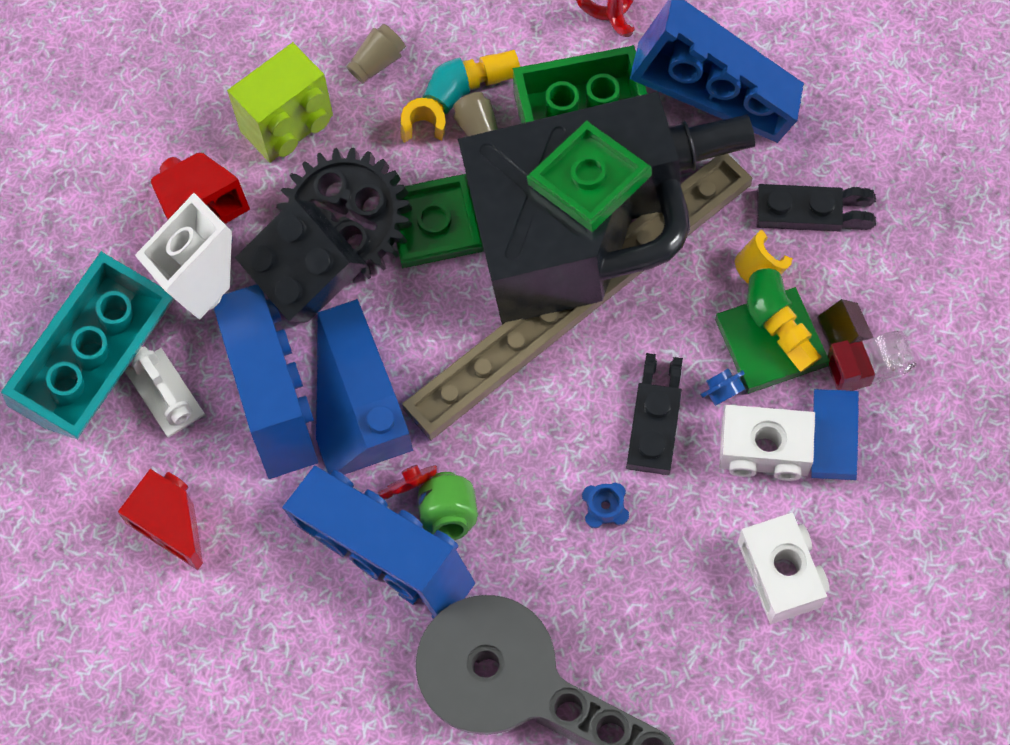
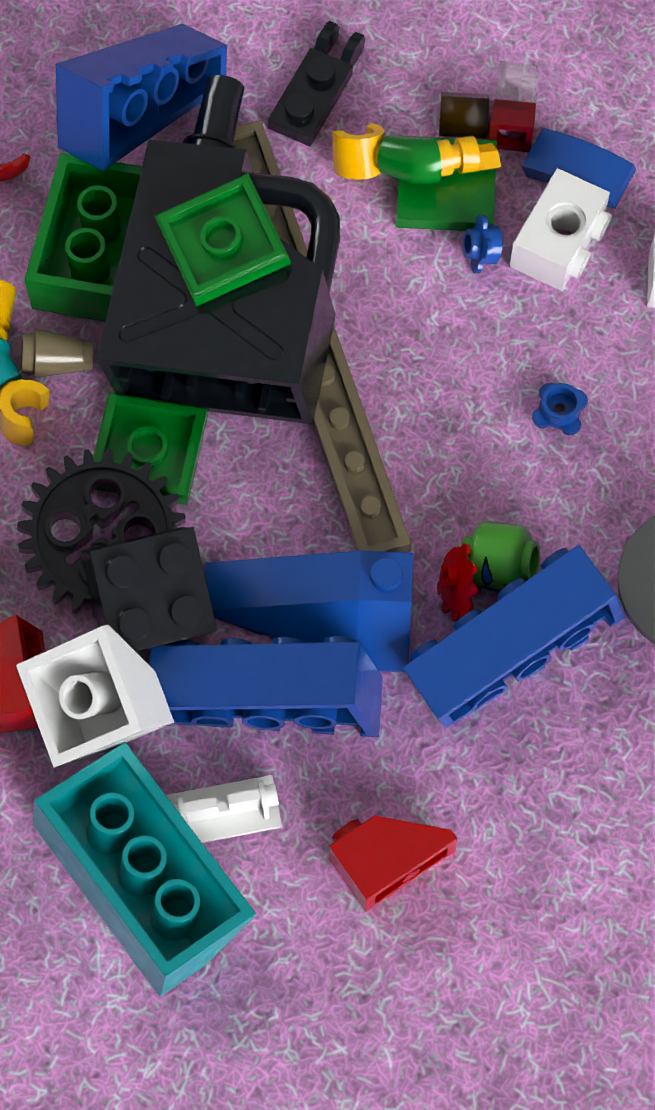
camera: 70 degrees left, 0 degrees up
(655, 420) = (482, 322): black hinge -> none

